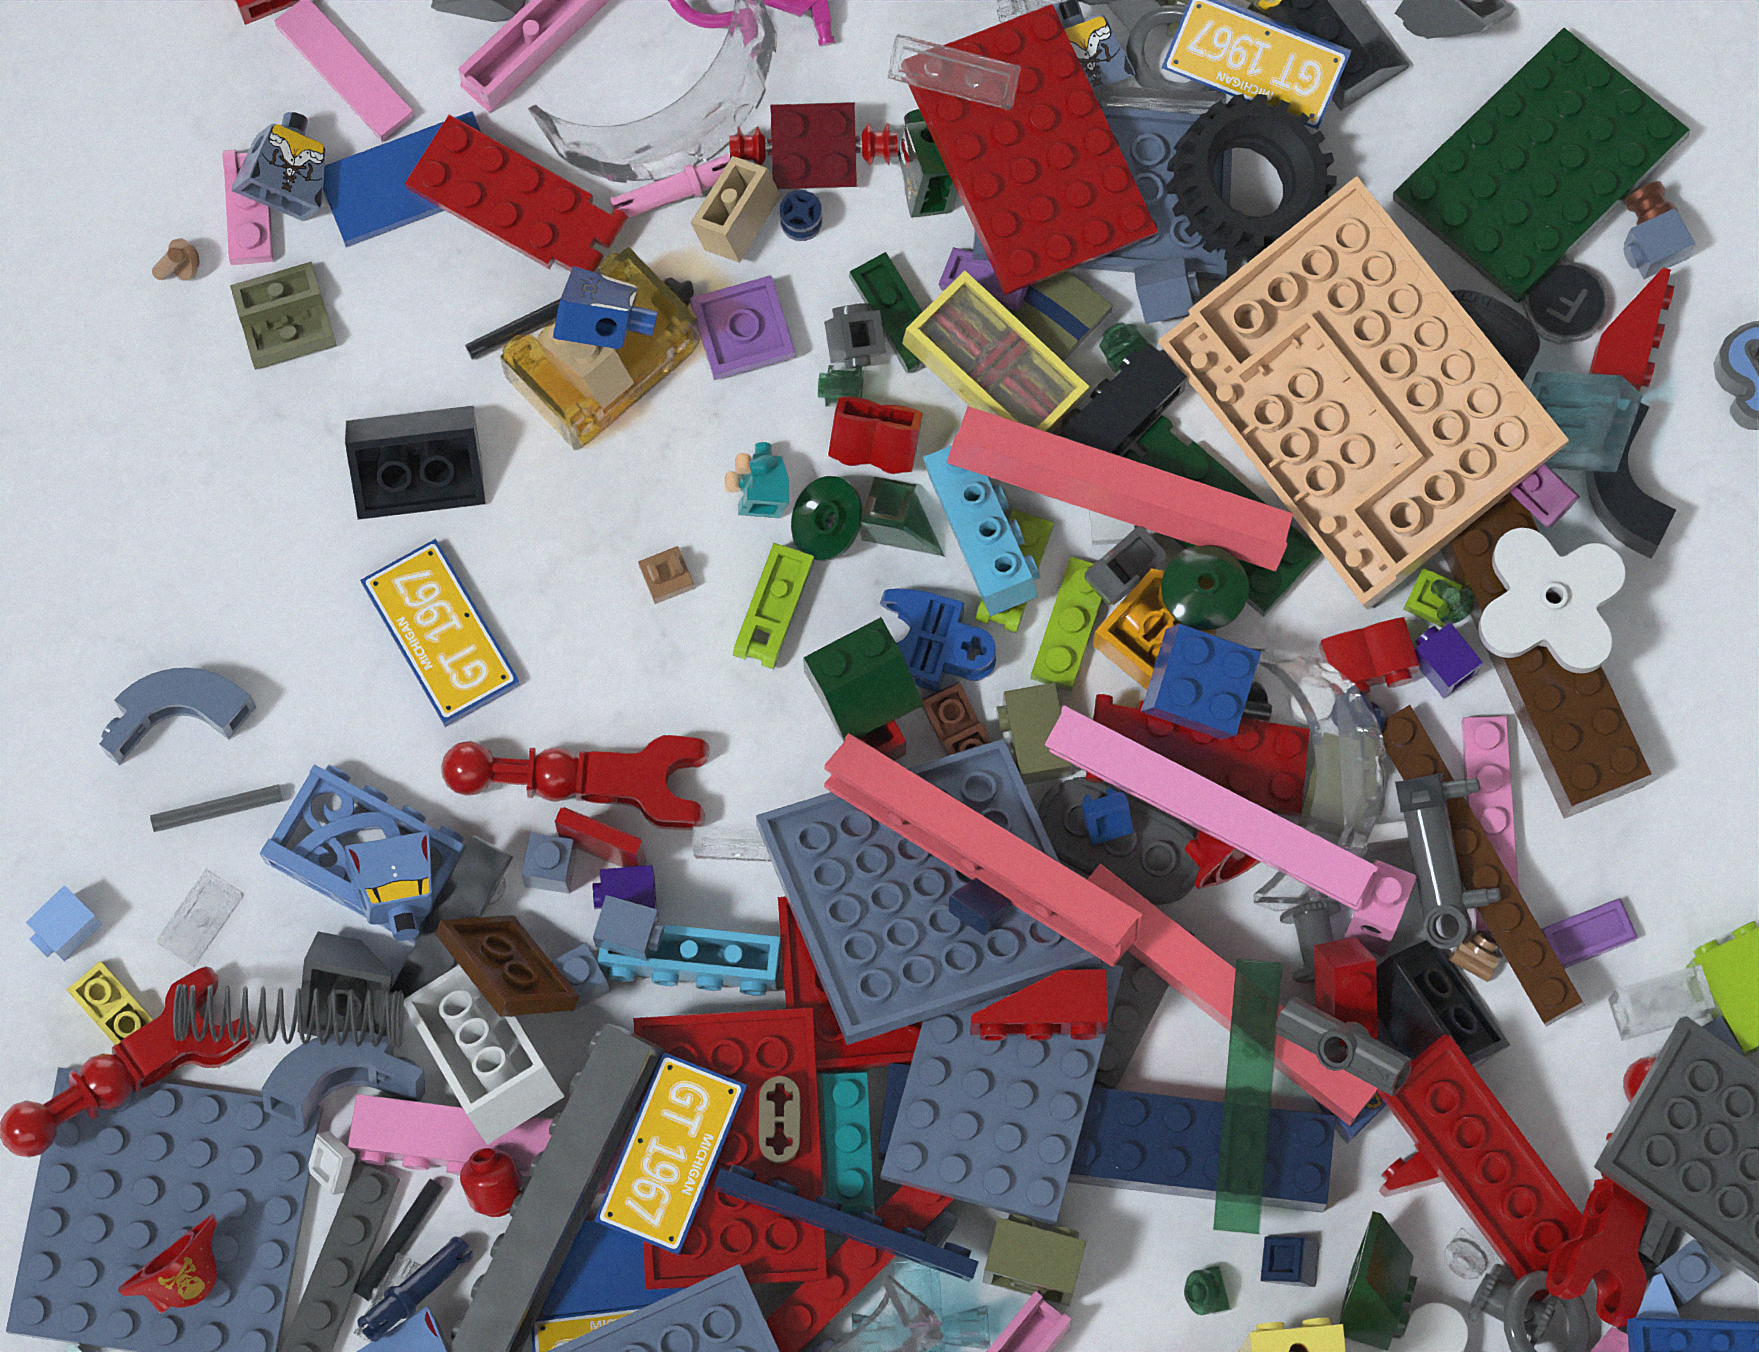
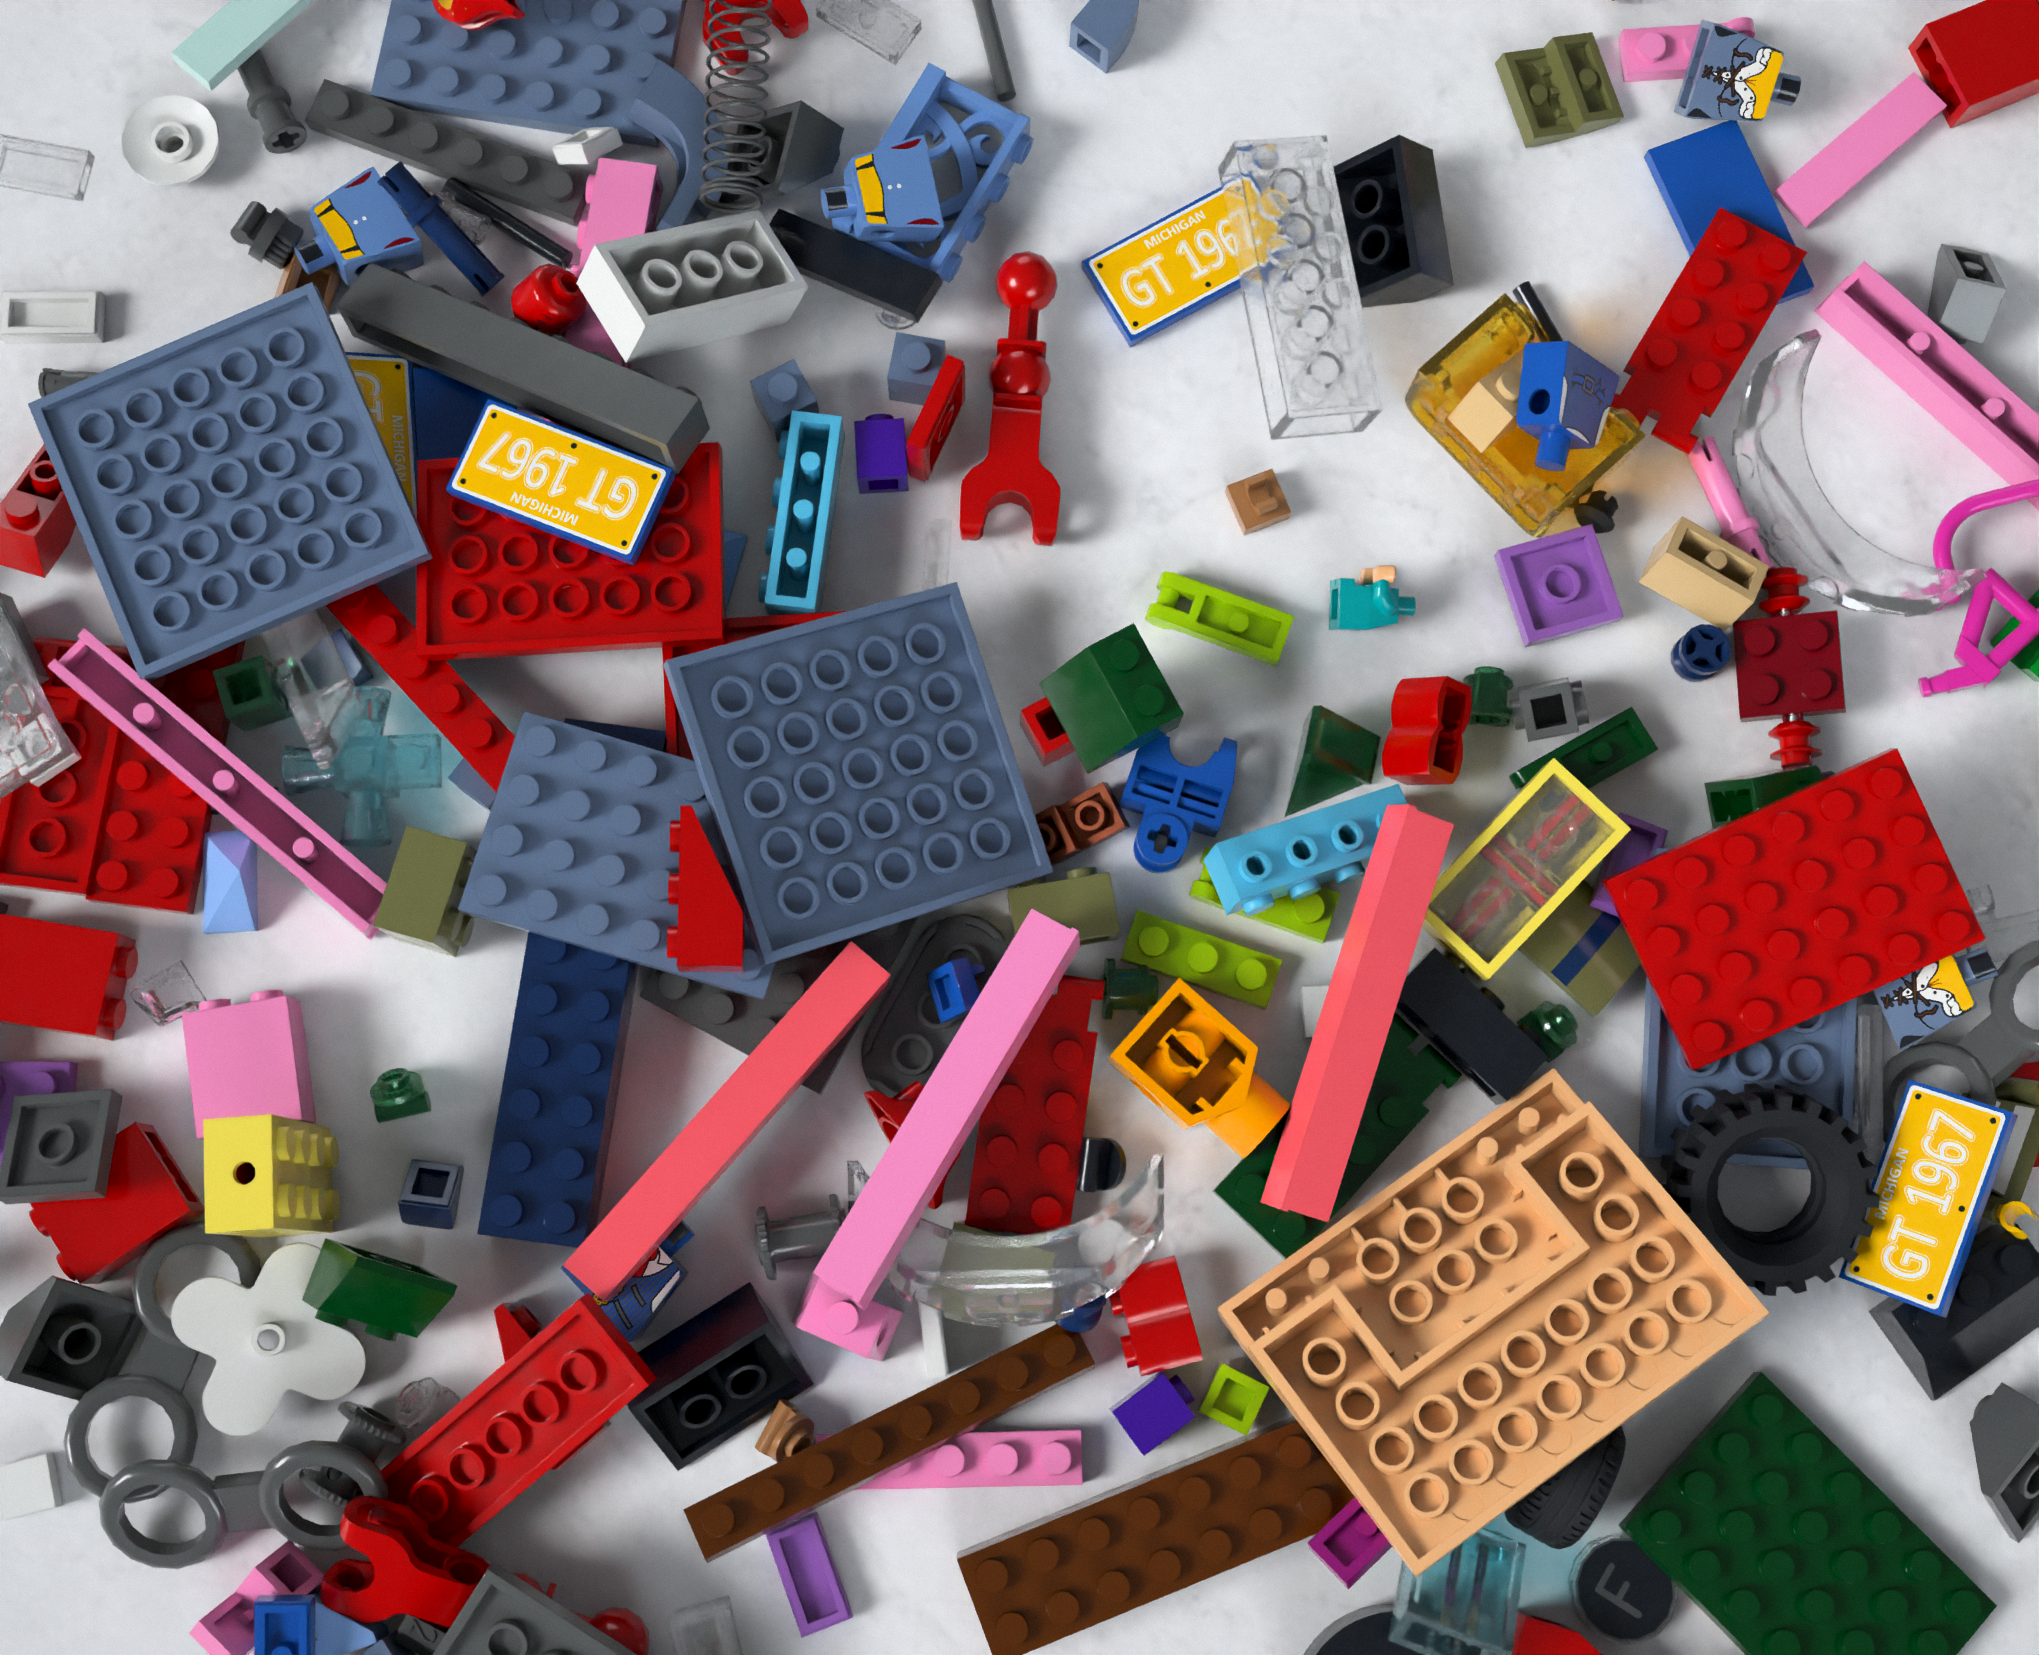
camera: 85 degrees right, 5 degrees up
(474, 534) = (1299, 287): none -> clear brick
(507, 965) = (783, 308): reddish brown plate -> none
(628, 928) = (821, 435): sand blue brick -> none
(768, 1119) = (591, 587): dark tan beam -> none
(826, 518) = (1324, 676): dark green dish -> none
(828, 1216) = (460, 686): dark blue plate -> none
(848, 1141) = (584, 690): teal brick -> none
(953, 72) = (1884, 807): clear tile -> none
(978, 905) = (831, 823): dark blue slope -> none
(983, 850) = (896, 832): coral tile -> none
(1099, 677) = (1127, 989): none -> clear green brick
(1125, 566) = (1259, 1013): dark grey animal -> none
(1166, 289) = (1619, 1079): sand blue brick -> none
(1201, 607) = (1206, 1119): dark green dish -> none
(1201, 681) = (1109, 1099): blue brick -> none
(1248, 1096) = (599, 1139): clear green tile -> none
(1346, 983) = (729, 1265): red brick -> none
(1366, 1056) = (638, 1251): dark grey piece -> none
(1435, 857) = (956, 1370): dark grey piece -> none
(1456, 603) = (1216, 1423): clear green plate -> none
(1525, 617) = (1189, 1507): white plant -> none

